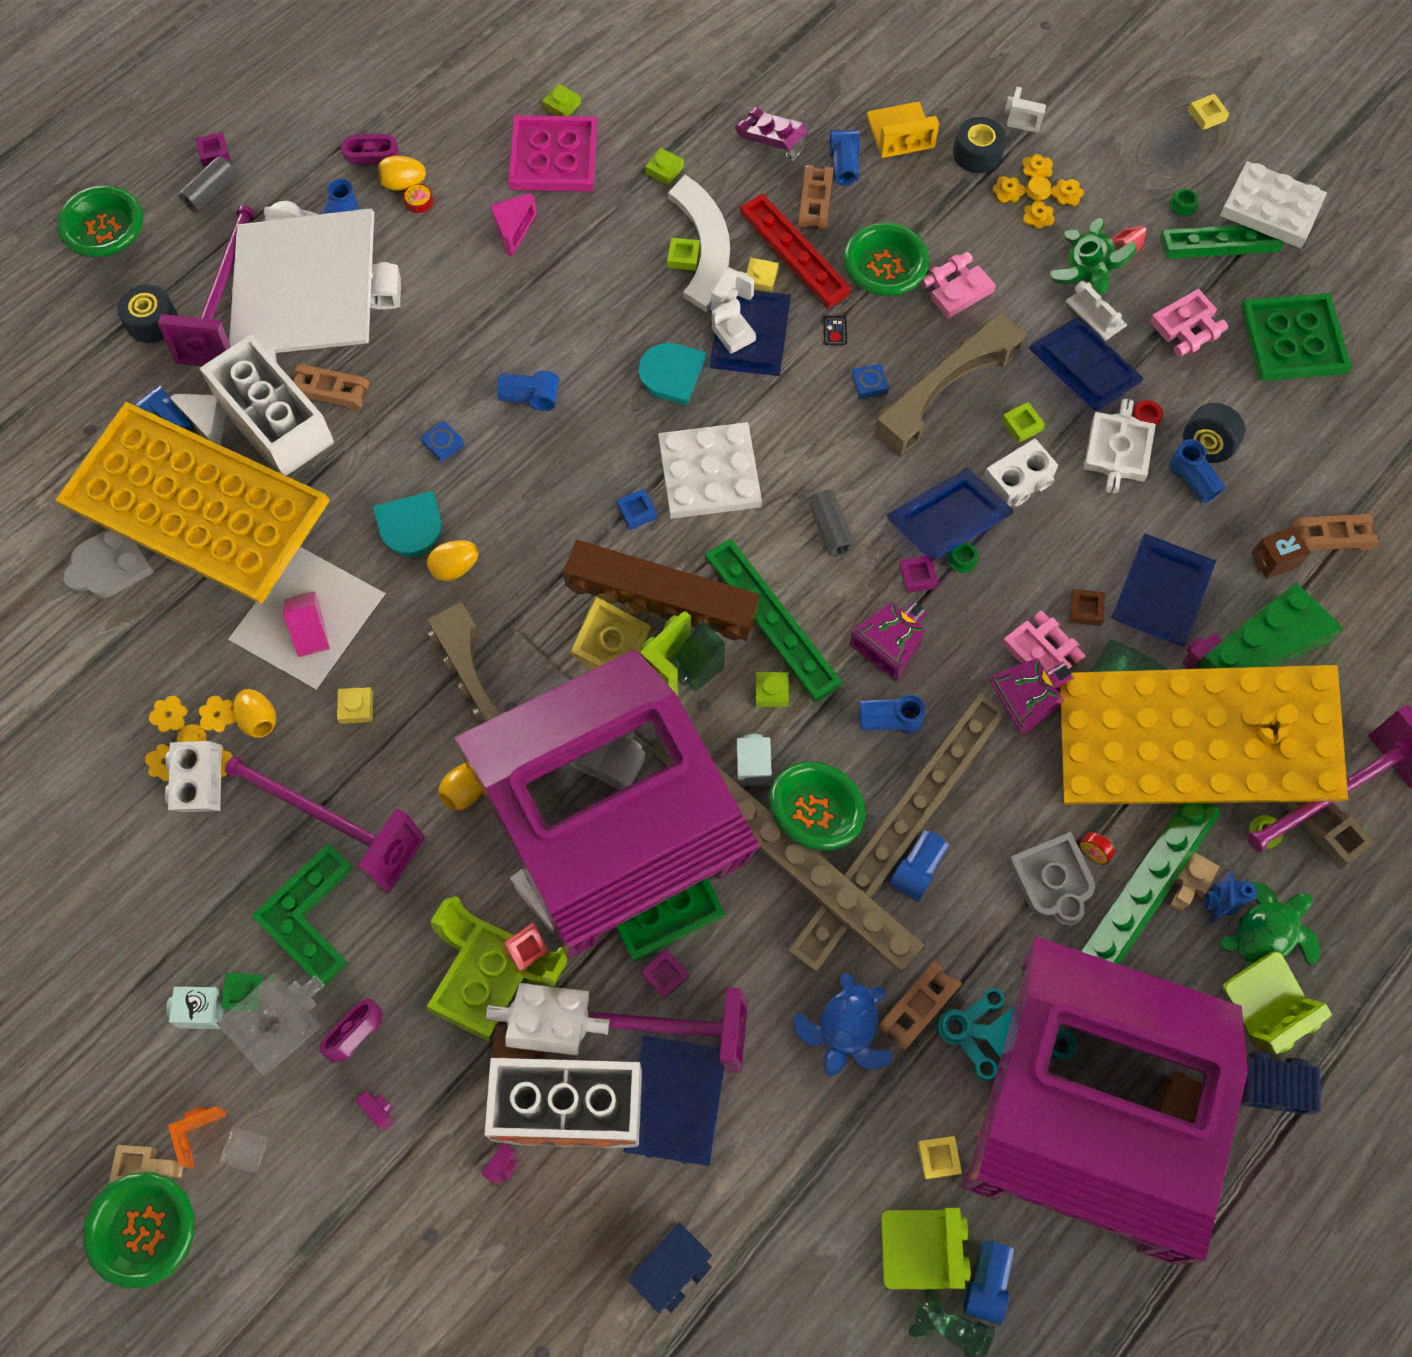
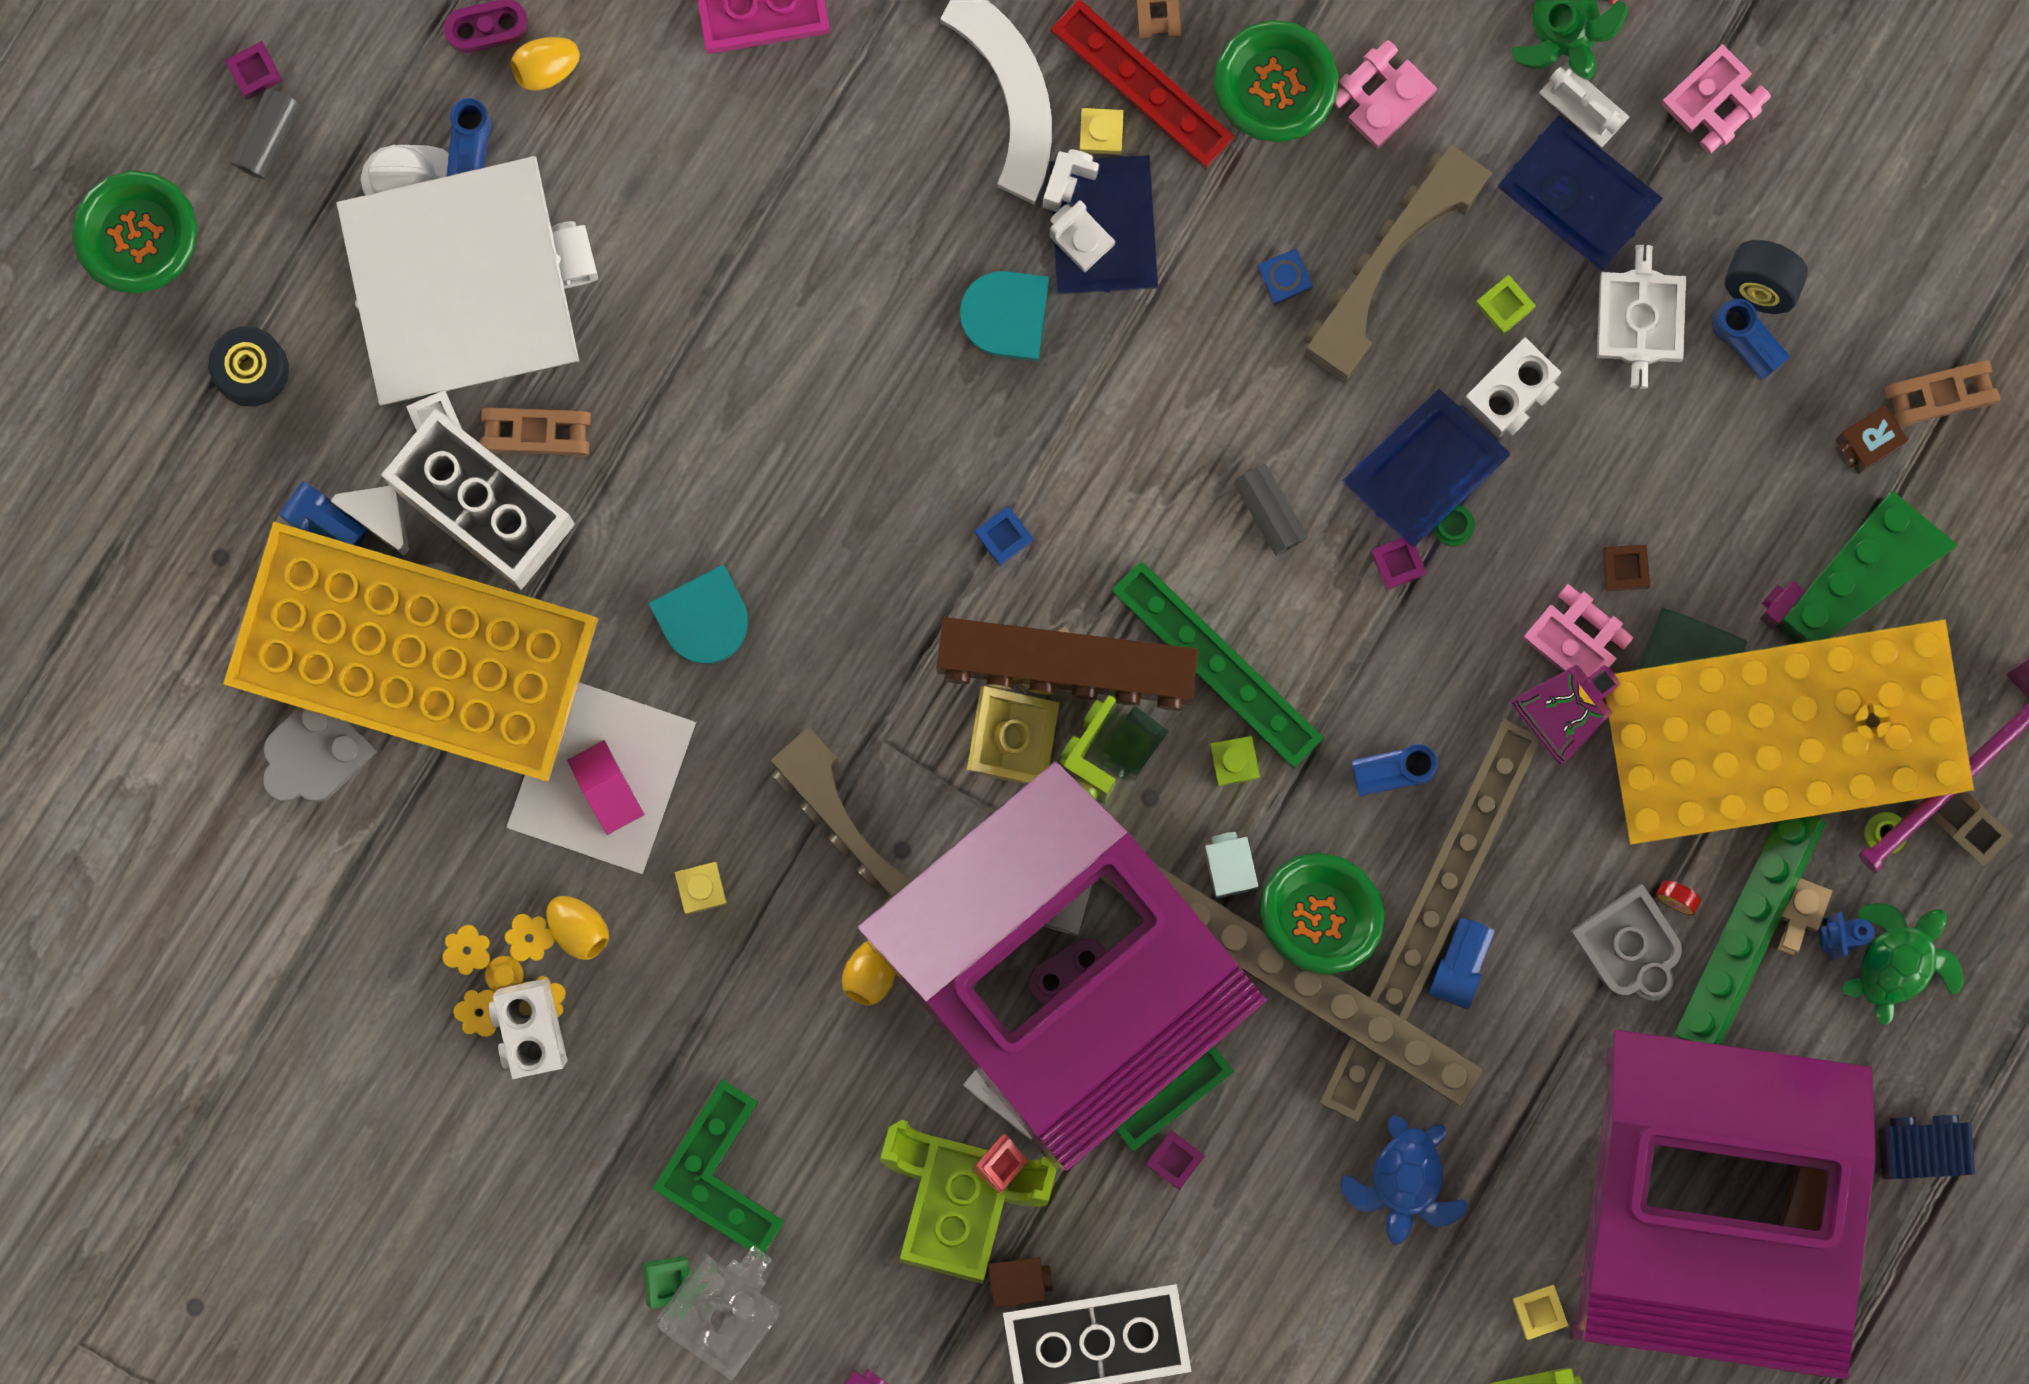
camera: 10 degrees left, 15 degrees up
(195, 1007) = (617, 1312): light aqua brick -> none
(203, 339) = (341, 404): magenta tile -> none
(351, 1030) = (813, 1302): magenta plate -> none
(388, 851) = (803, 1077): magenta tile -> none
(418, 198) = (577, 94): tile -> none
(442, 441) = (715, 484): blue tile -> none
(452, 559) = (777, 663): yellow animal -> none
(513, 219) = (726, 113): dark pink slope -> none
(536, 390) = (829, 383): blue piece -> none
(547, 1019) = (1050, 1246): white plate -> none
(678, 1100) = (1223, 1303): clear blue piece -> none
(683, 254) = (984, 120): lime plate -> none
(709, 470) = (1090, 457): white plate -> none
(729, 1030) = (1266, 1216): magenta tile -> none
(835, 330) = (1221, 199): black sticker -> none
(890, 638) = (1378, 662): magenta torso -> none
(919, 1005) = (1489, 1136): medium nougat plate -> none
(994, 1034) = (1583, 1153): teal plant -> none
(1148, 412) = (1673, 256): red tile -> none
(1163, 590) = (1724, 520): clear blue piece -> none
(1274, 1004) = (1911, 1055): lime bracket -> none
(1295, 337) = (1865, 94): green plate -> none

